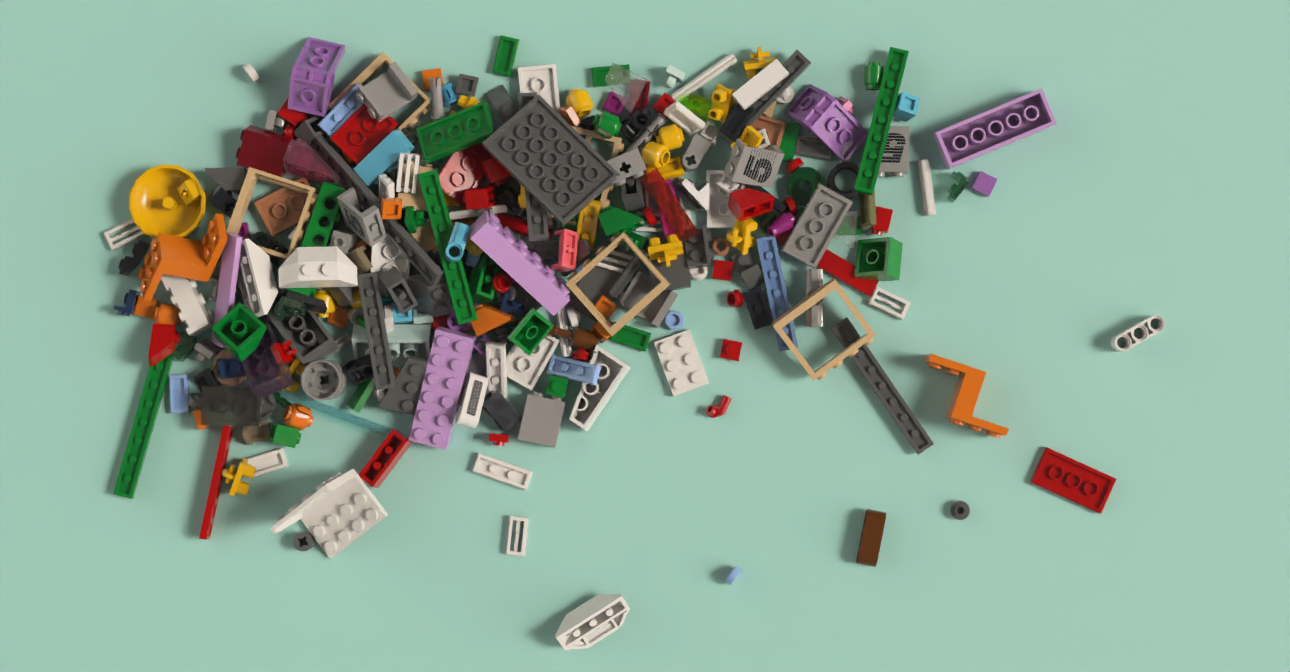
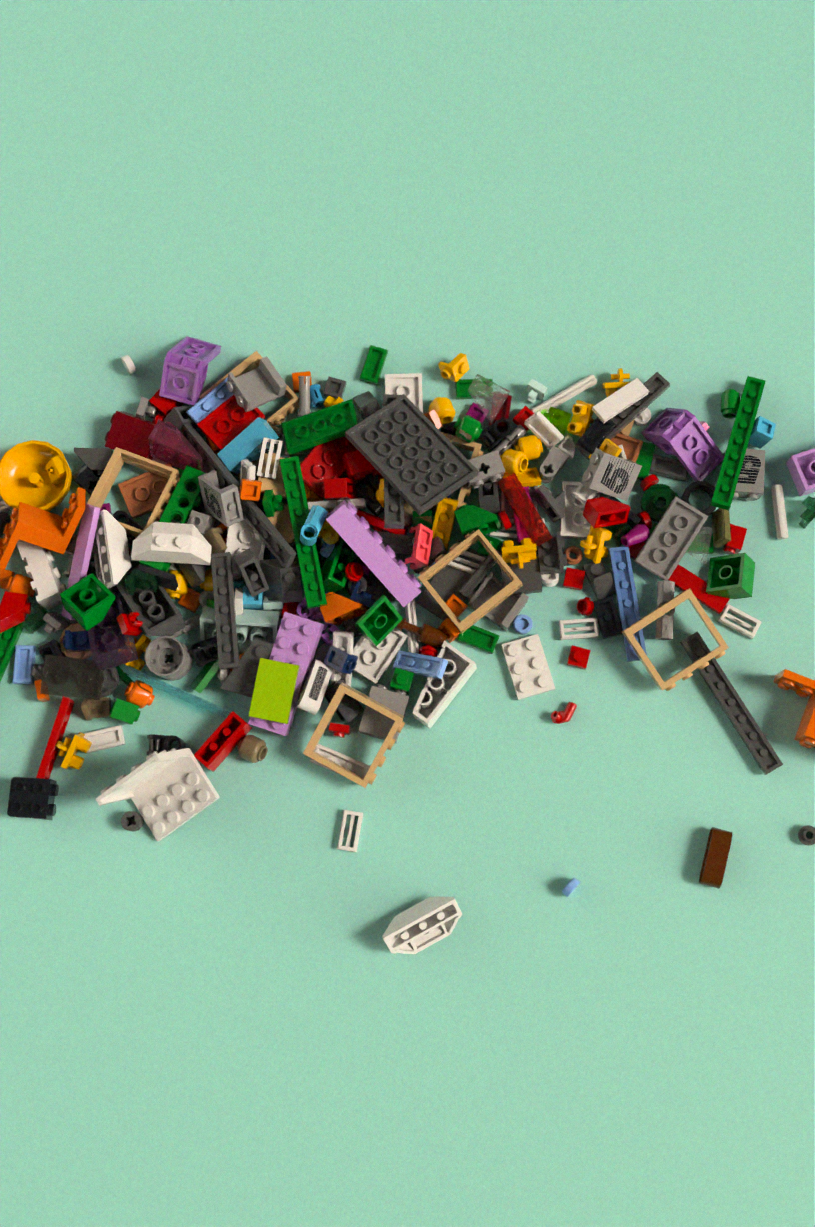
camera: 10 degrees right, 10 degrees down
(204, 527) = (32, 798): none -> black bracket
(325, 465) = (159, 743): none -> black piece
(415, 463) = (252, 748): none -> dark tan head
(432, 408) = (274, 690): none -> lime tile
(495, 372) = (340, 660): none -> dark blue bracket
(502, 402) = (387, 744): none -> tan window
(574, 317) = (423, 614): white tile -> none
(590, 57) = (455, 369): none -> yellow bracket
(713, 322) = (562, 630): none -> white tile

